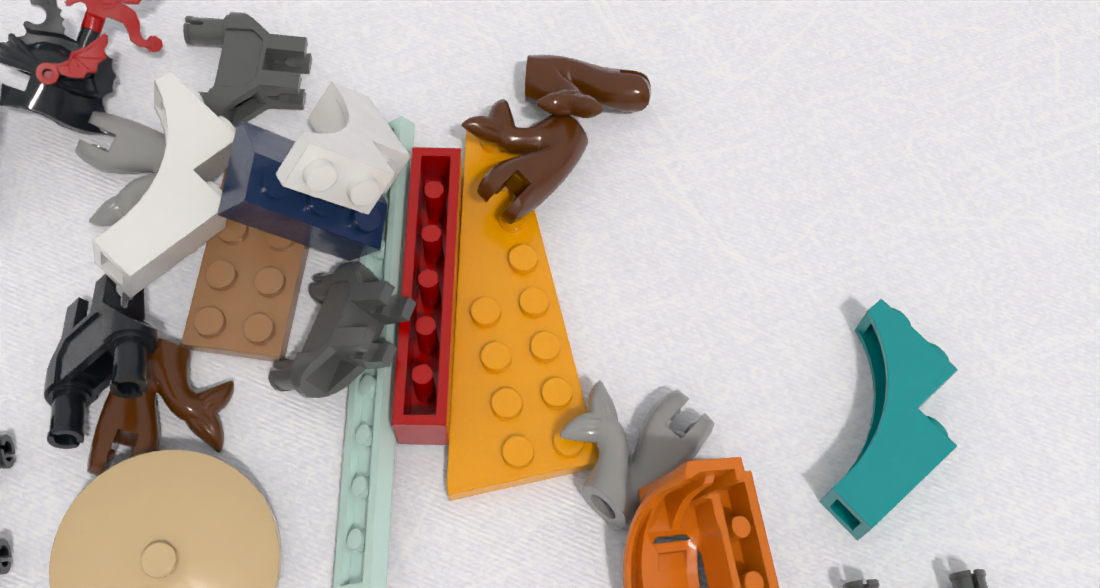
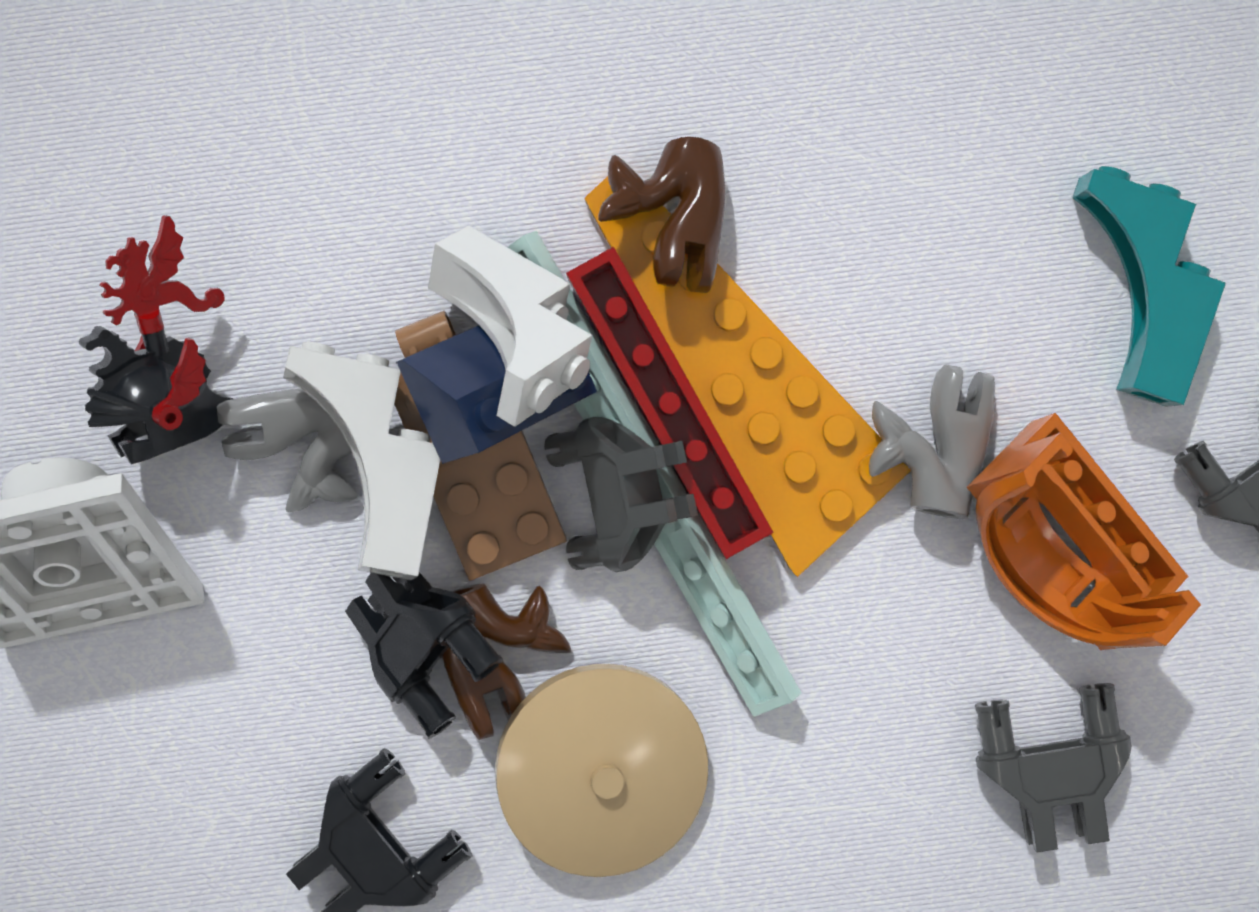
camera: 25 degrees left, 25 degrees up
(254, 66) = (319, 263): dark grey connector -> none
(581, 88) = (646, 87): reddish brown piece -> none

